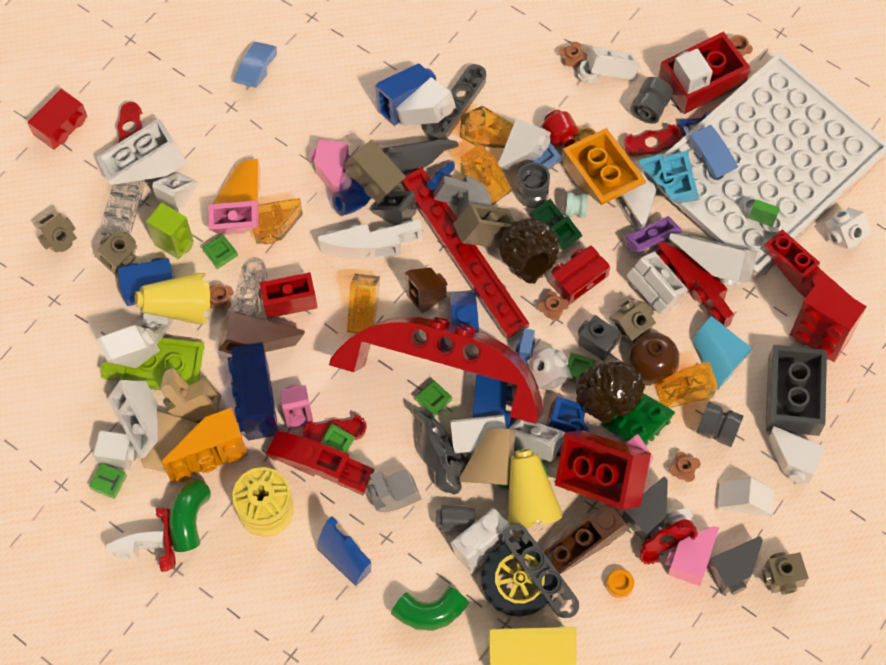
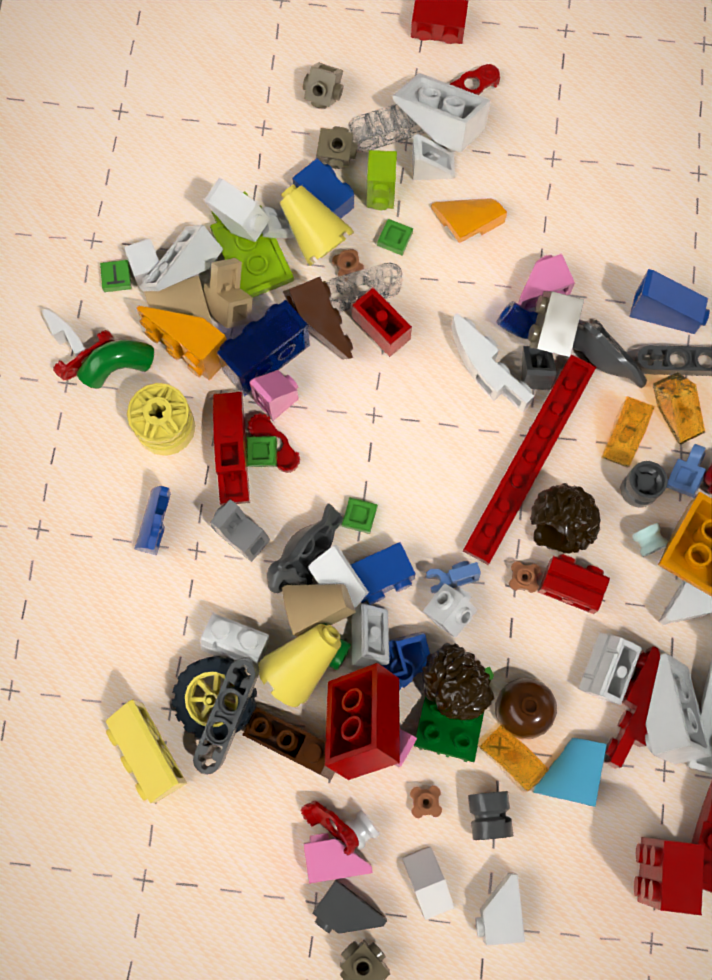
camera: 60 degrees right, 10 degrees up
(233, 217) = (428, 223): bright pink slope -> none
(254, 64) = (604, 151): medium blue slope -> none
(276, 220) = (454, 265): clear yellow slope -> none
(363, 302) = (417, 394): clear yellow slope -> none
(425, 288) = (466, 443): reddish brown slope -> none
(426, 105) = (665, 331): white slope -> none
(430, 615) = (137, 635): green cylinder -> none
(443, 171) = (599, 390): blue piece -> none
(454, 518) = (245, 604): dark grey brick -> none
(462, 192) = (591, 430): light grey brick -> none
(464, 309) = (461, 495): blue slope -> none
(483, 225) = (564, 460): dark tan brick -> none
(492, 360) = (407, 508): red slope -> none
(524, 145) = (682, 450): white slope -> none
(562, 226) = (616, 531): dark green slope -> none
(579, 364) = (474, 638): bright green tile -> none
(598, 337) = (515, 640): dark grey brick -> none
(620, 583) = (268, 799): light orange tile -> none
(633, 319) = (554, 665): dark tan brick -> none
(651, 235) = (662, 635): medium lavender slope -> none
(652, 513) = (356, 793): dark grey slope -> none
(796, 390) = (575, 878): dark grey brick -> none

